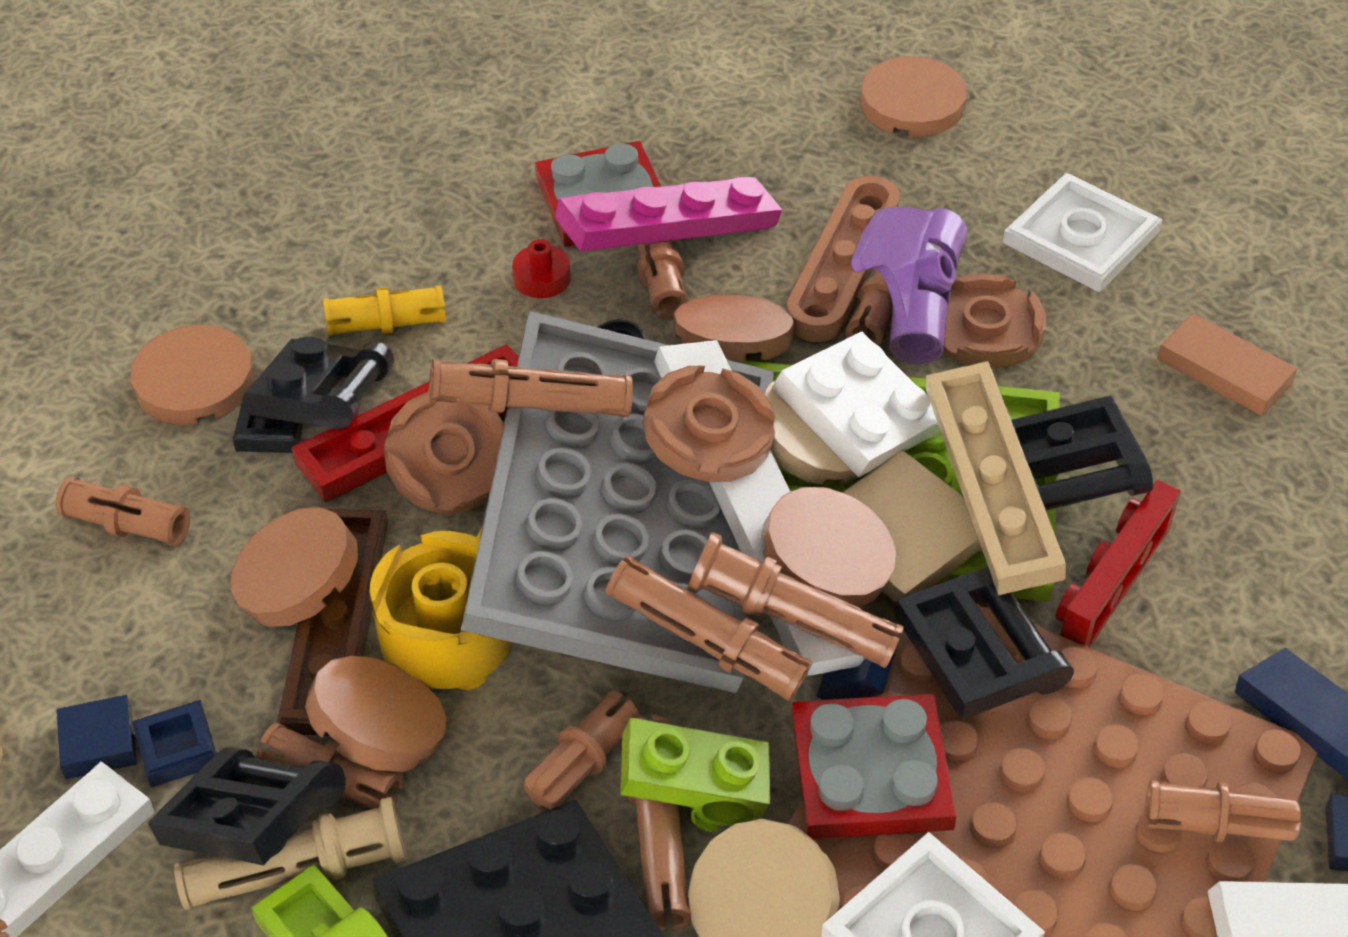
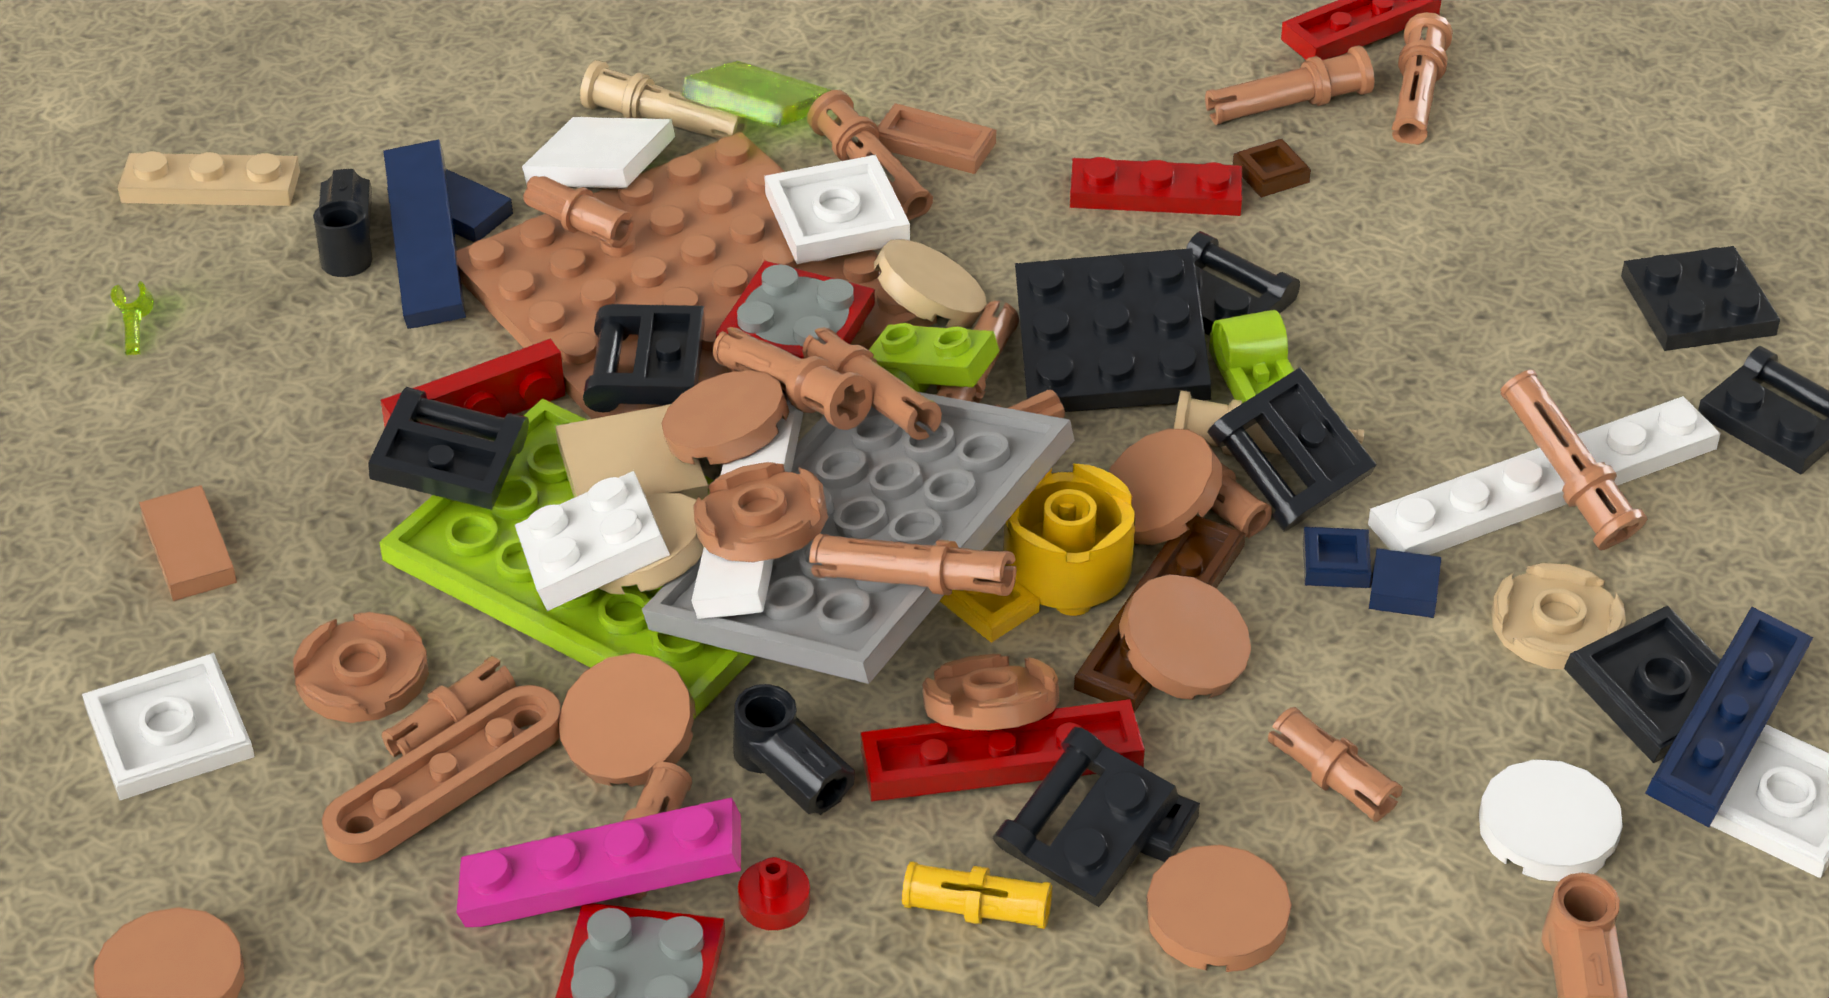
camera: 155 degrees left, 5 degrees down
(915, 273) = (409, 671): medium lavender pin -> none
(995, 479) = (538, 426): tan plate -> none

